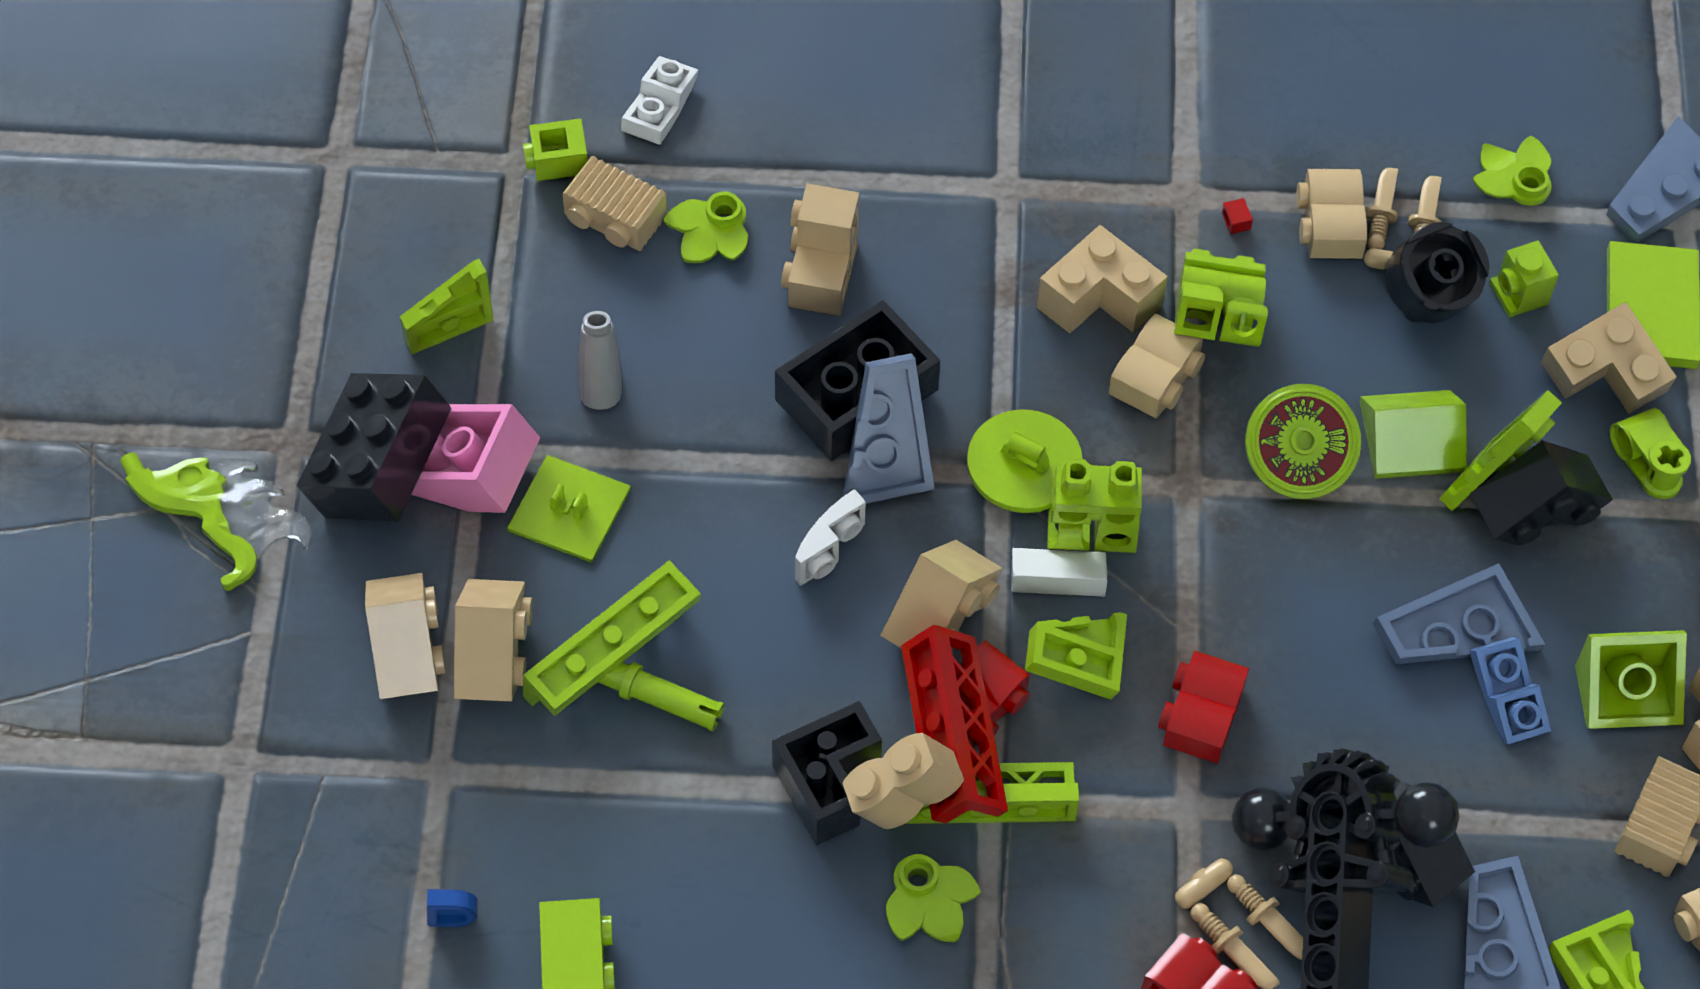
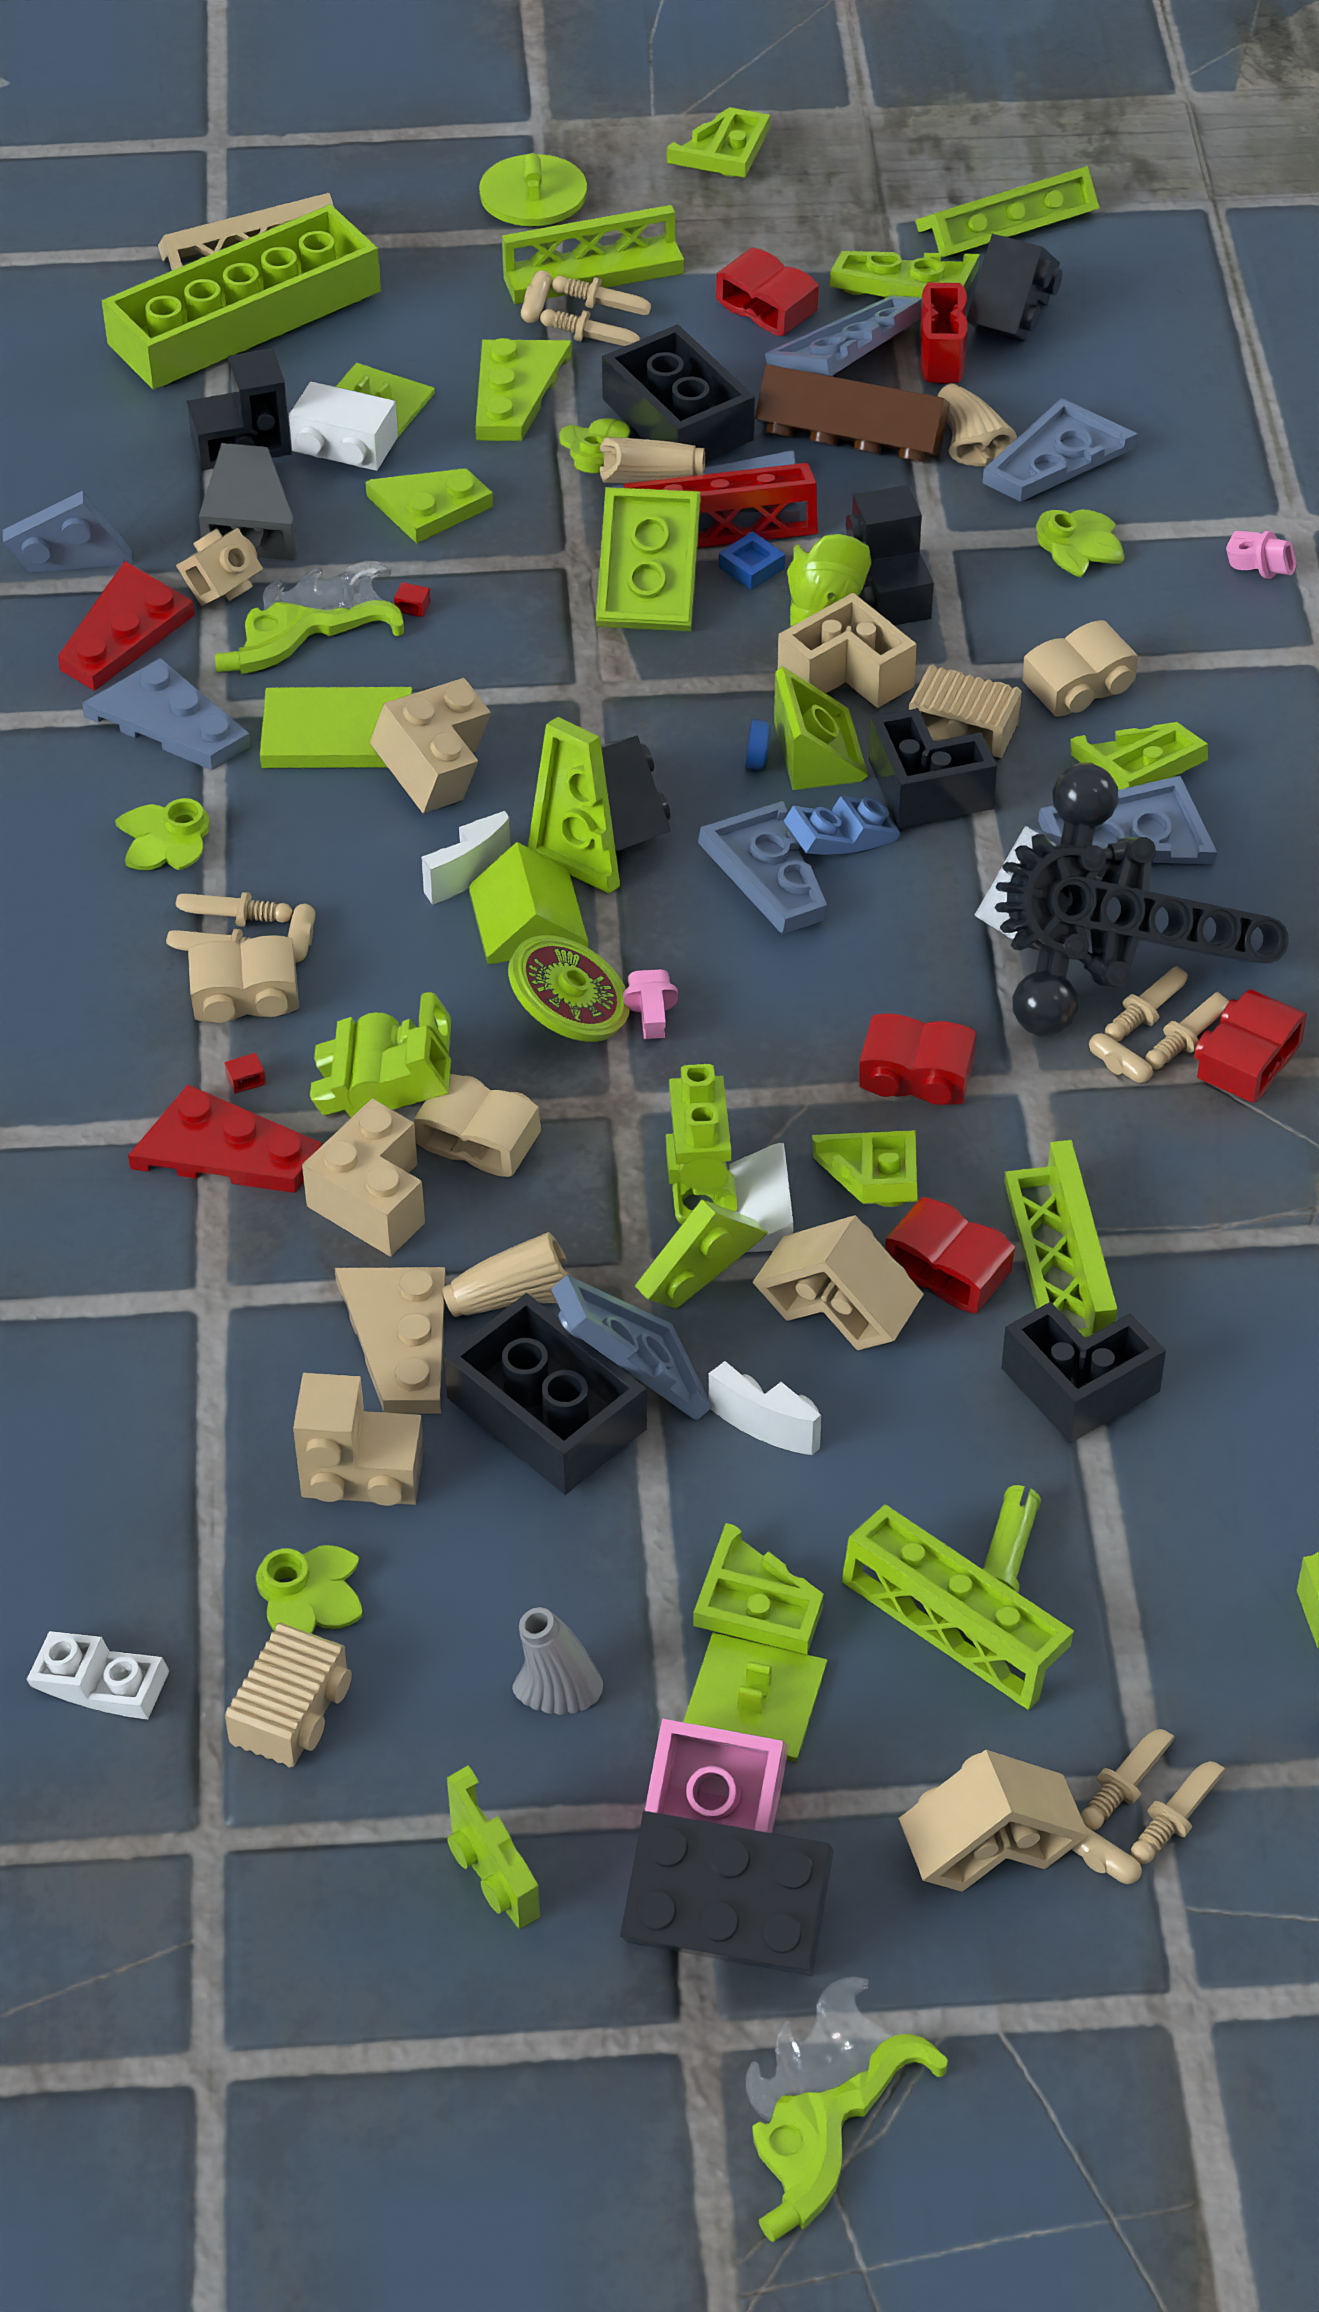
camera: 95 degrees left, 10 degrees down
(397, 771) = (1167, 1818): none -> tan piece
(487, 631) = (977, 1710): tan brick -> none
(556, 149) = (204, 1769): lime brick -> none
(652, 513) = (757, 1597): none -> lime wing
(906, 778) = (1111, 1244): tan brick -> none
(931, 906) = (1199, 1284): lime plate -> none
(941, 714) = (1017, 1244): red fence -> none
(955, 303) = (400, 1331): none -> tan wing
(982, 374) = (507, 1276): none -> tan piece
(988, 502) = (698, 1253): none -> lime wing
(1016, 459) = (615, 1236): lime shield -> none
(1162, 196) = (224, 1140): none -> red wing
(1293, 507) = (651, 995): none -> bright pink piece
(1413, 276) = (336, 875): black brick -> none
(1481, 391) = (457, 866): none -> white slope
(1525, 279) = (324, 816): lime brick -> none
(1563, 754) = (929, 778): none -> black brick
(1619, 623) = (757, 744): none -> blue tile
(1652, 452) = (521, 720): lime piece -> none

